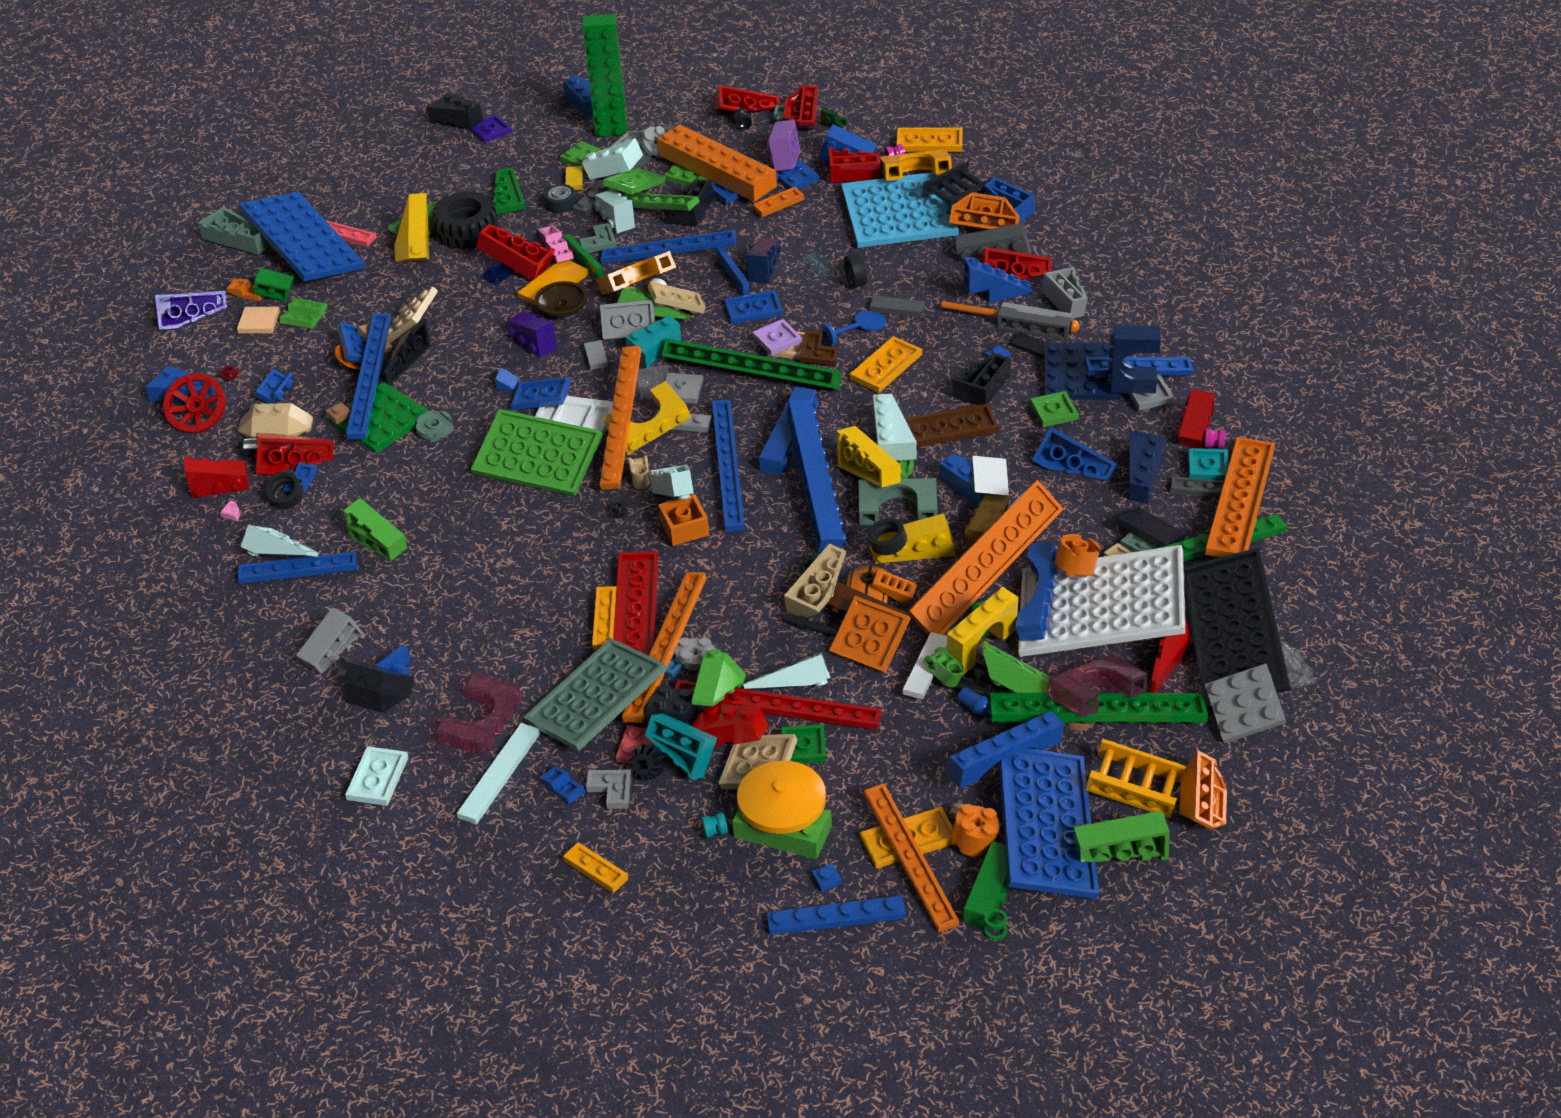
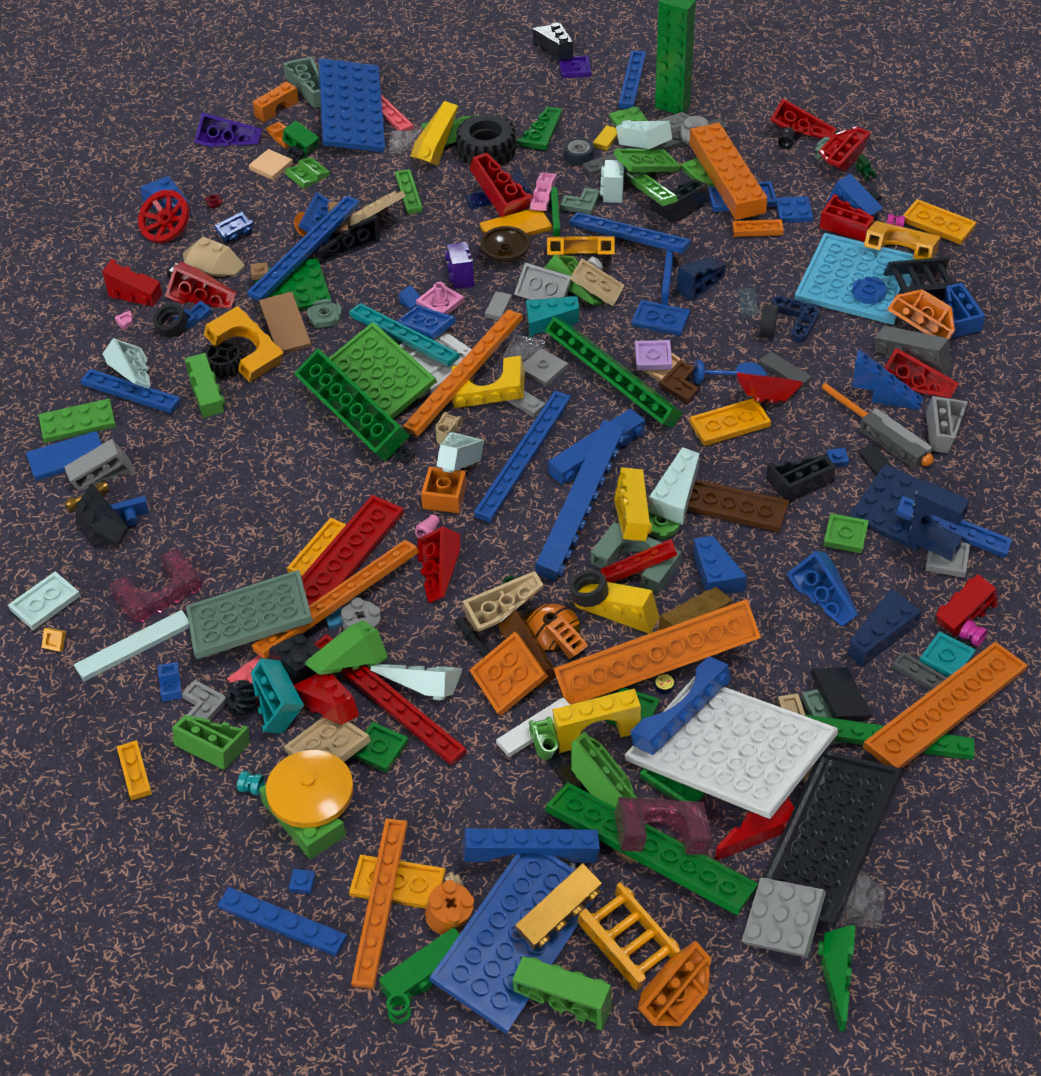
camera: 30 degrees right, 5 degrees up
(218, 254) = (266, 105): none -> orange arch
(263, 616) = (76, 420): none -> bright green plate
(277, 297) = (294, 153): none -> black plate
(277, 650) = (53, 458): none -> blue tile
(328, 685) = (71, 503): none -> pearl gold bar
(368, 462) = (238, 323): none -> light orange arch
(375, 251) = (402, 140): none -> clear wing
(375, 494) = (225, 357): none -> black gear
(403, 448) = (285, 322): none -> medium nougat tile
(415, 287) = (406, 184): none -> bright green tile
(418, 801) = (53, 639): none -> light orange plate
(536, 486) = (351, 405): none -> green brick
(537, 368) = (440, 297): none -> bright pink plate
(554, 412) = (405, 335): none -> teal tile
(556, 120) = (632, 79): none -> blue plate
(648, 809) = (209, 740): none -> bright green wedge
(692, 558) = (427, 526): none -> bright pink cone
(728, 579) = (438, 555): none -> red wedge
(784, 145) = (796, 177): medium lavender brick -> none
(874, 254) = (802, 313): none -> dark blue beam
(898, 322) = (767, 387): none -> red wedge
(911, 496) = (639, 561): none -> red tile
(919, 214) = (869, 290): none -> blue tile
(975, 702) = (550, 782): blue piece -> none
(990, 475) = (727, 572): white sticker -> none
(1001, 582) = (664, 683): none -> tile
(1070, 779) = (558, 907): none -> wedge
(1073, 657) = (671, 788): none -> green plate
(1077, 555) = (734, 690): orange brick -> none
(1309, 717) = (836, 959): none -> green wedge

